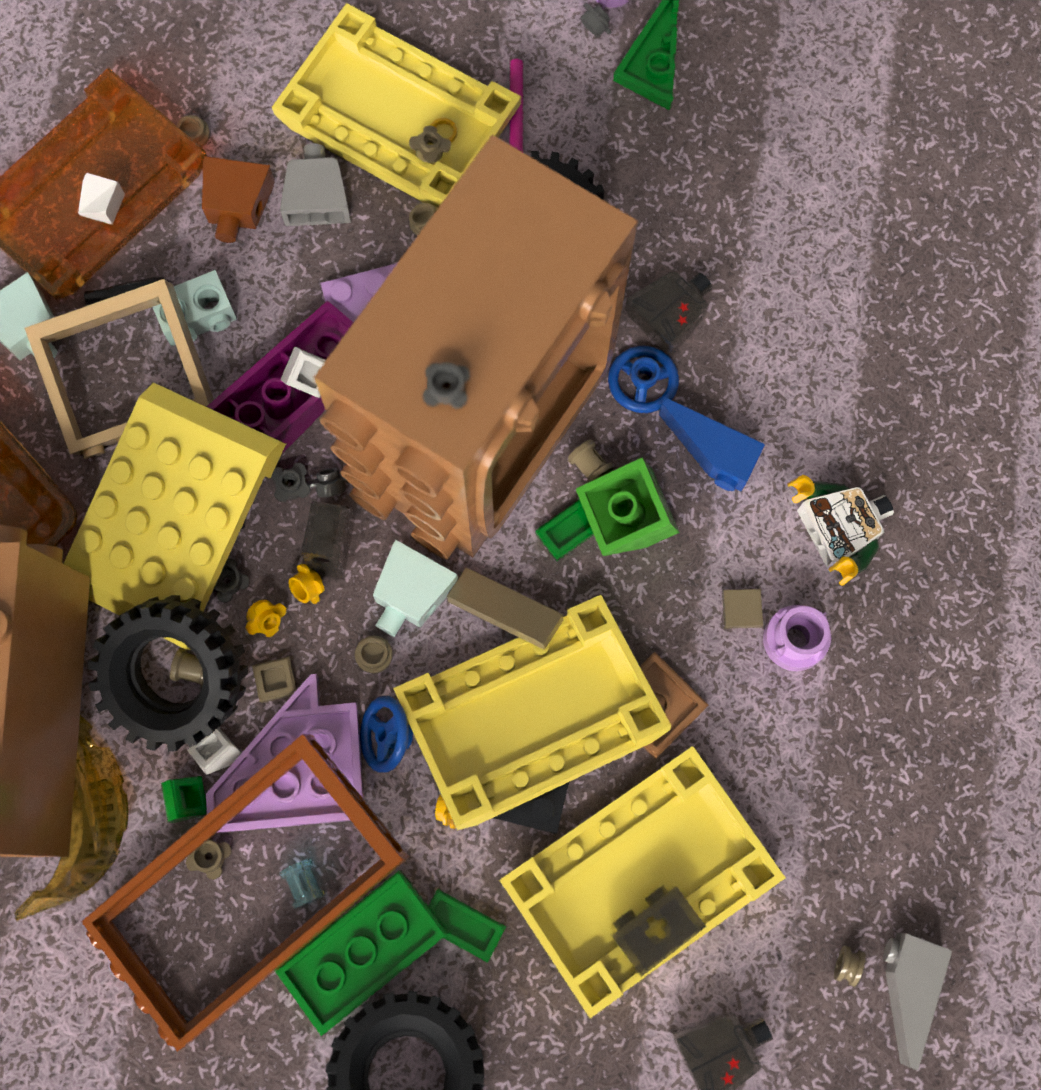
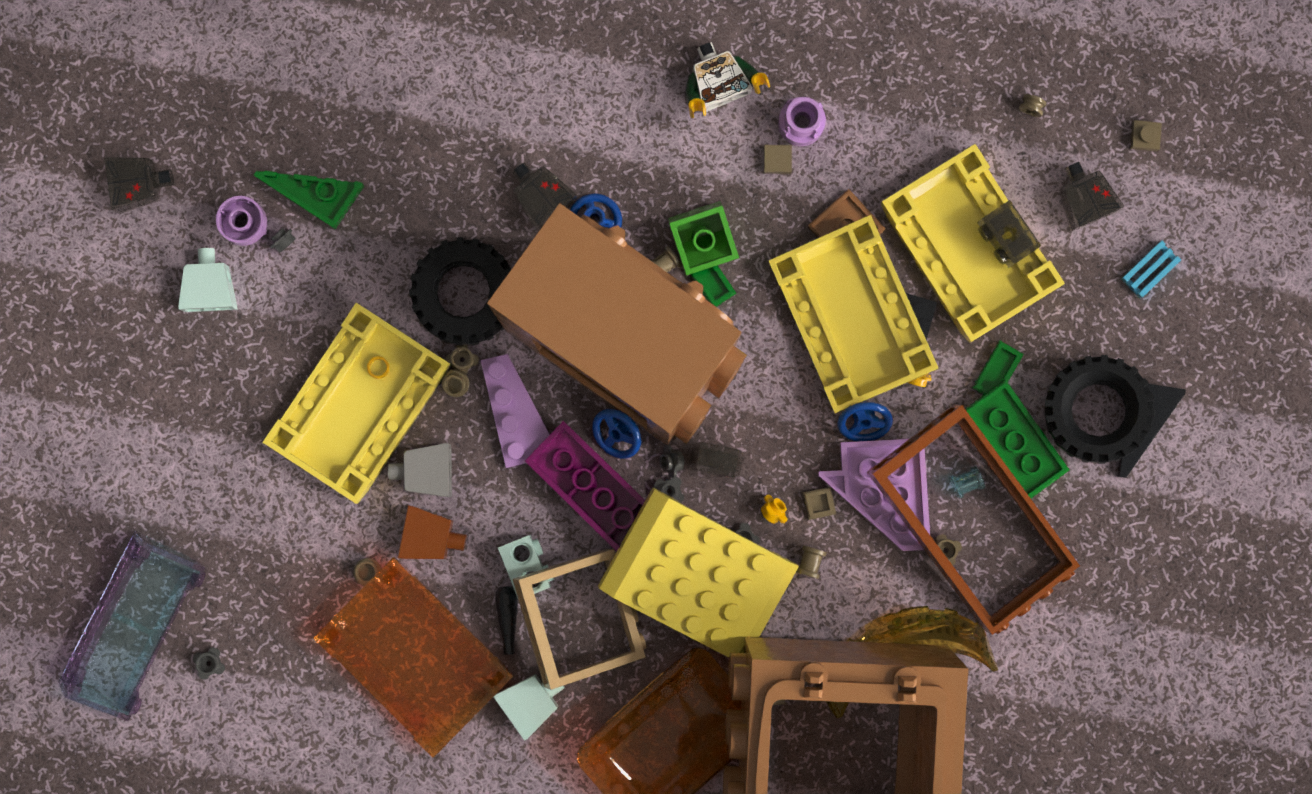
camera: 90 degrees left, 10 degrees up
(100, 198) = (432, 641): white slope -> none
(136, 704) = (848, 587): black tyre -> none
(184, 798) = (905, 567): green brick -> none
(214, 752) = (870, 547): white slope -> none
(301, 371) = (590, 474): white slope -> none
(306, 585) = (750, 479): yellow plate -> none
(373, 654) = (803, 430): dark tan plate -> none
(410, 588) = (756, 401): light aqua torso -> none
(426, 152) = (402, 379): dark tan plate -> none
(442, 373) = (676, 333): dark grey plate -> none
(505, 608) = (774, 331): dark tan tile -> none
(516, 121) = (345, 308): dark pink bar -> none
(717, 448) = (656, 168): blue slope -> none
(914, 986) = (1044, 62): light grey slope -> none

